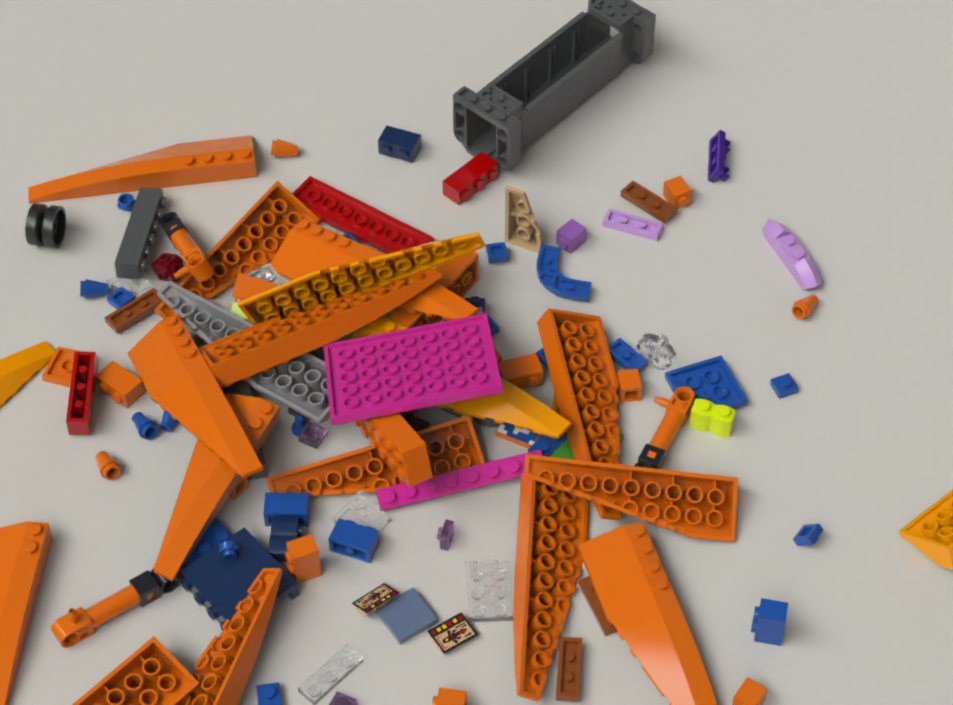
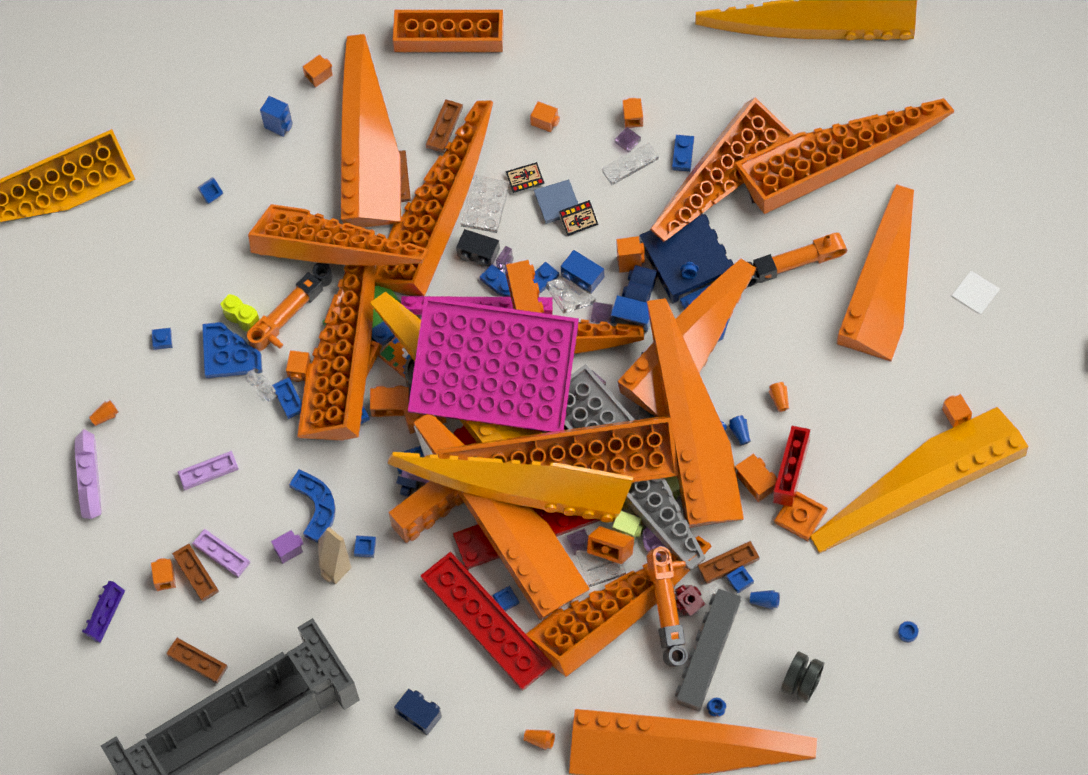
camera: 160 degrees left, 15 degrees up
(322, 509) = (601, 312): none -> clear purple plate
(421, 514) = (497, 279): none -> blue plate
(470, 178) = (362, 643): red brick -> none
(480, 539) = (477, 248): none -> black brick
(615, 142) = (197, 660): none -> dark orange plate
(678, 285) = (208, 470): none -> lavender tile

